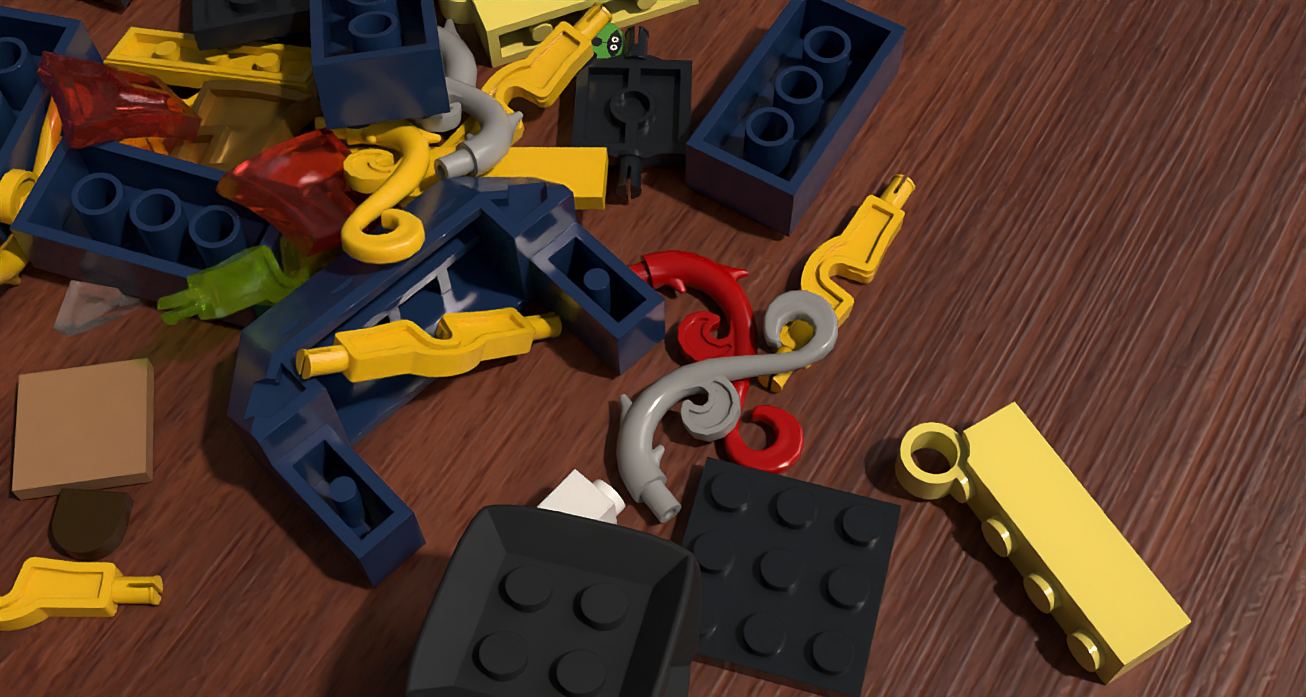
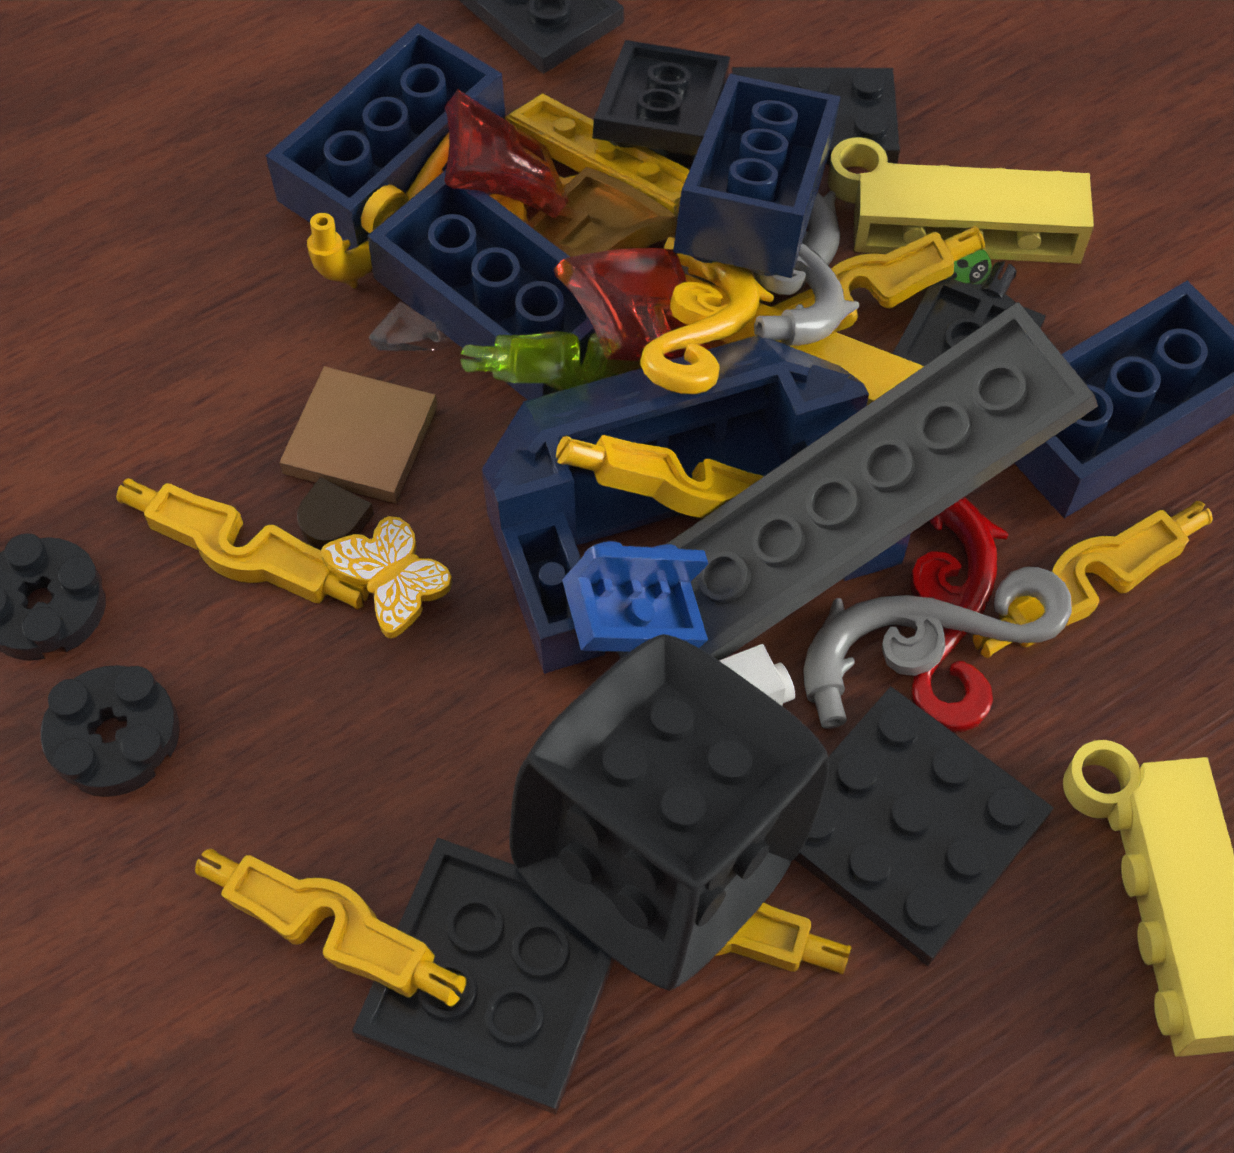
camera: 25 degrees right, 0 degrees up
(175, 554) = (390, 572): none -> yellow animal
(435, 479) = (633, 594): none -> blue bracket
(591, 300) = (880, 476): none -> dark grey plate

